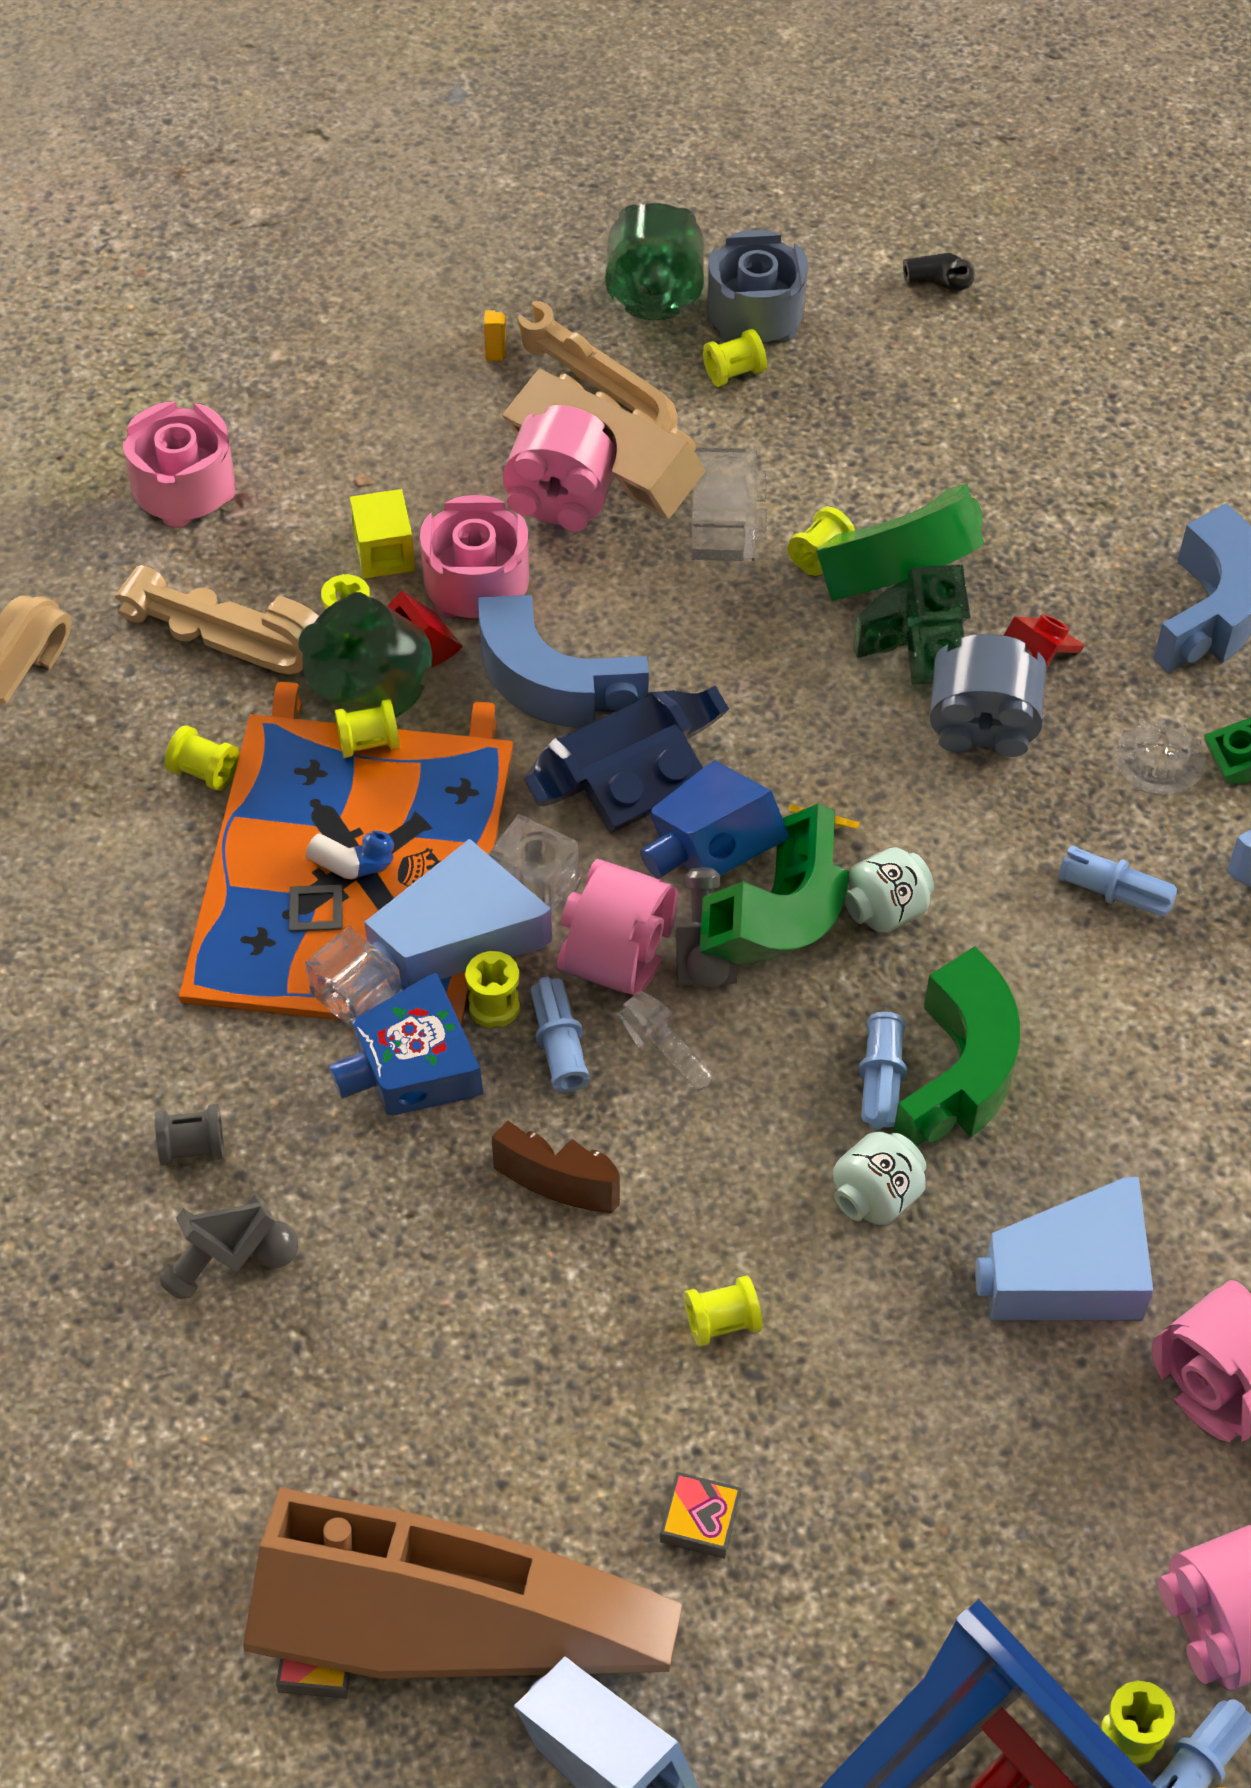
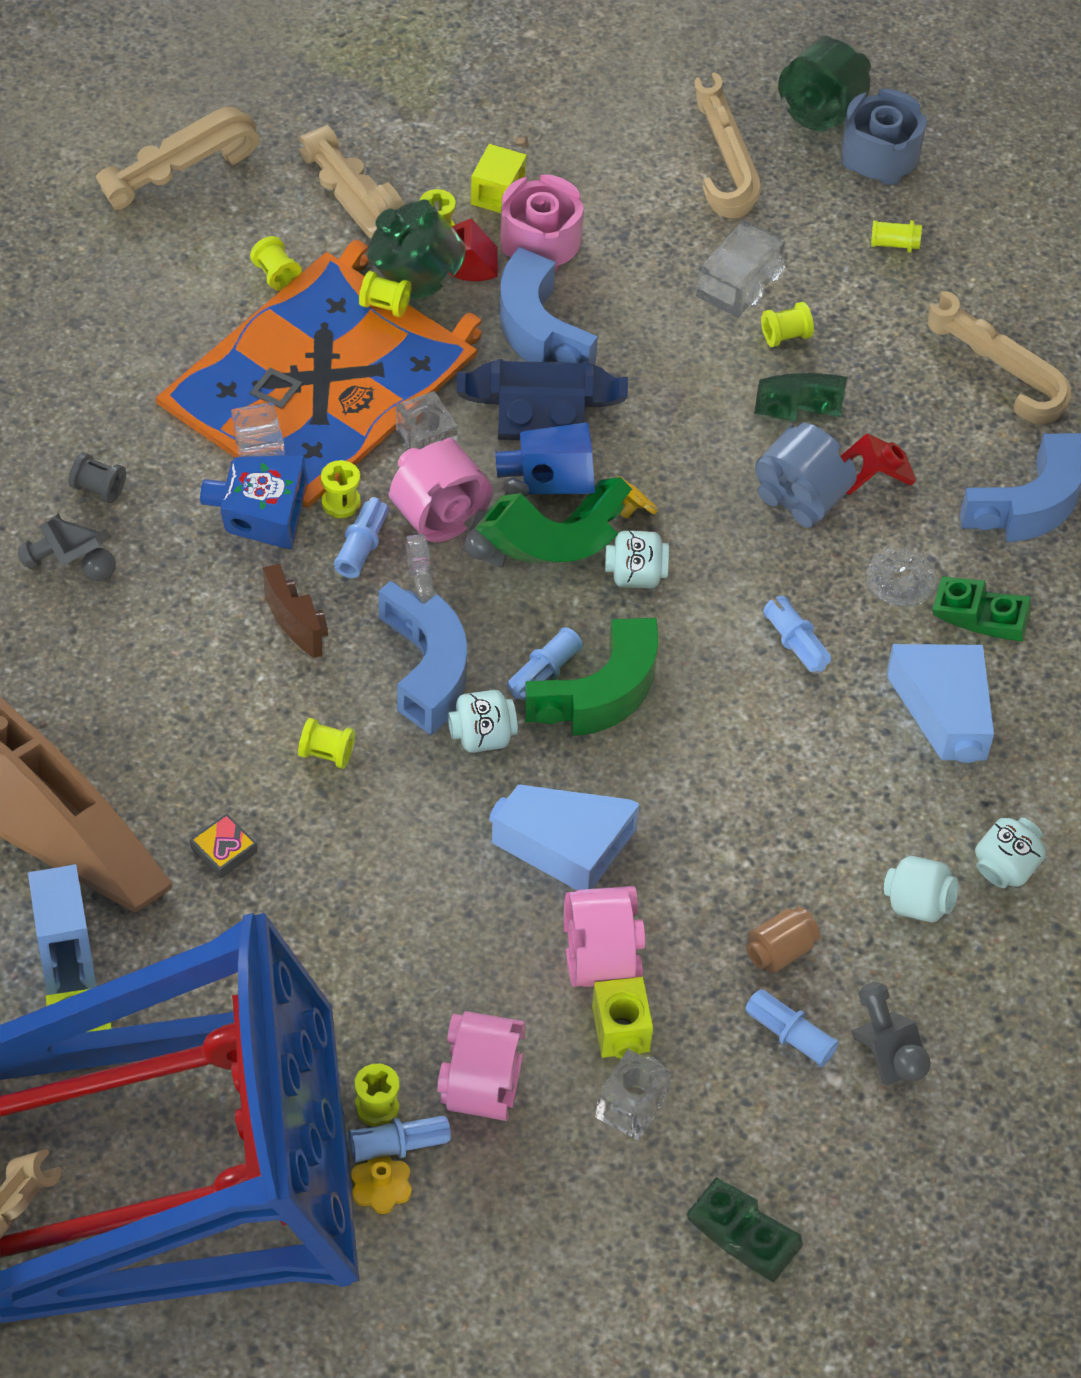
camera: 30 degrees right, 0 degrees up
(179, 462) = (402, 71): bright pink brick -> none
(352, 862) = (313, 370): arm -> none
(455, 914) = (345, 428): light blue slope -> none
(495, 335) = (681, 84): yellow tile -> none
(560, 467) = (642, 190): bright pink brick -> none
(650, 462) = (697, 210): tan arch -> none
(734, 357) = (822, 182): neon yellow bush -> none
(764, 1119) = (440, 678): none -> medium blue arch
(849, 389) = (896, 235): none -> neon yellow pin
(885, 552) = (835, 350): green arch -> none
(934, 616) = (815, 398): clear green slope -> none
(942, 269) = (1038, 185): black arm -> none
(1070, 460) = (1008, 355): none -> tan piece

